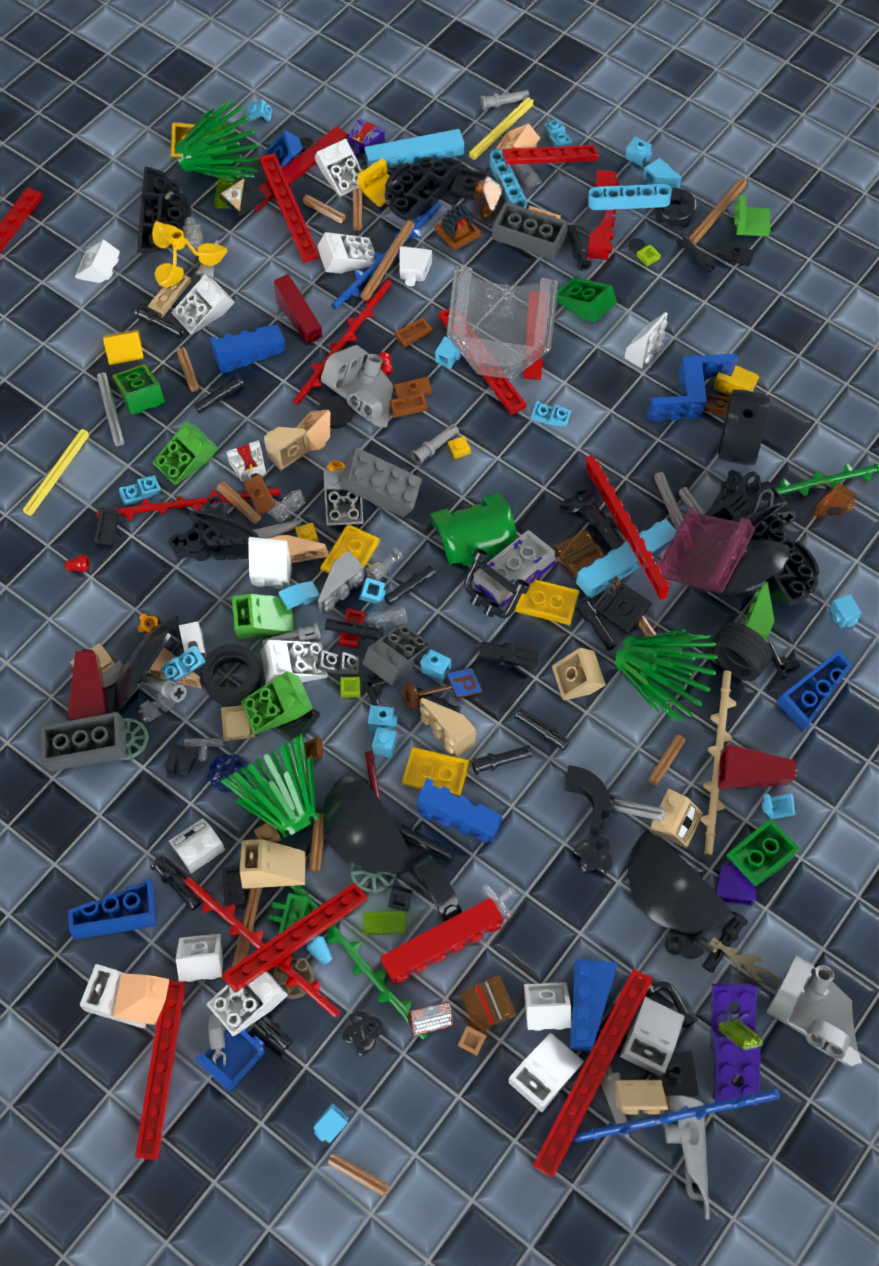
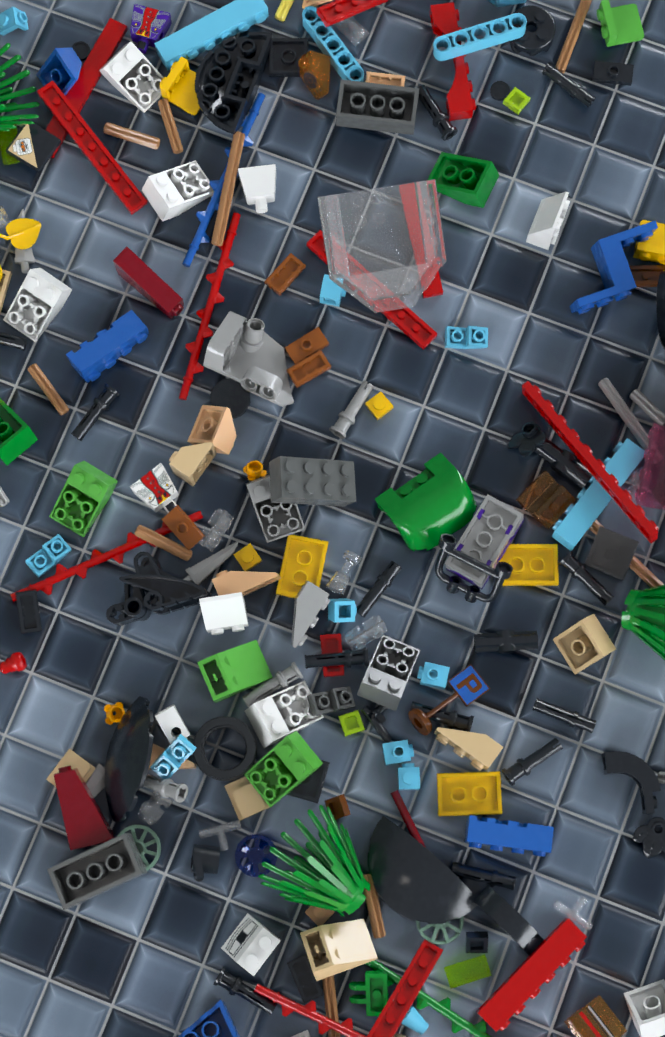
camera: 15 degrees left, 15 degrees up
(298, 594) = (265, 634): medium azure slope -> none
(386, 363) = (265, 316): red piece -> none
(457, 227) = (294, 125): plate -> none

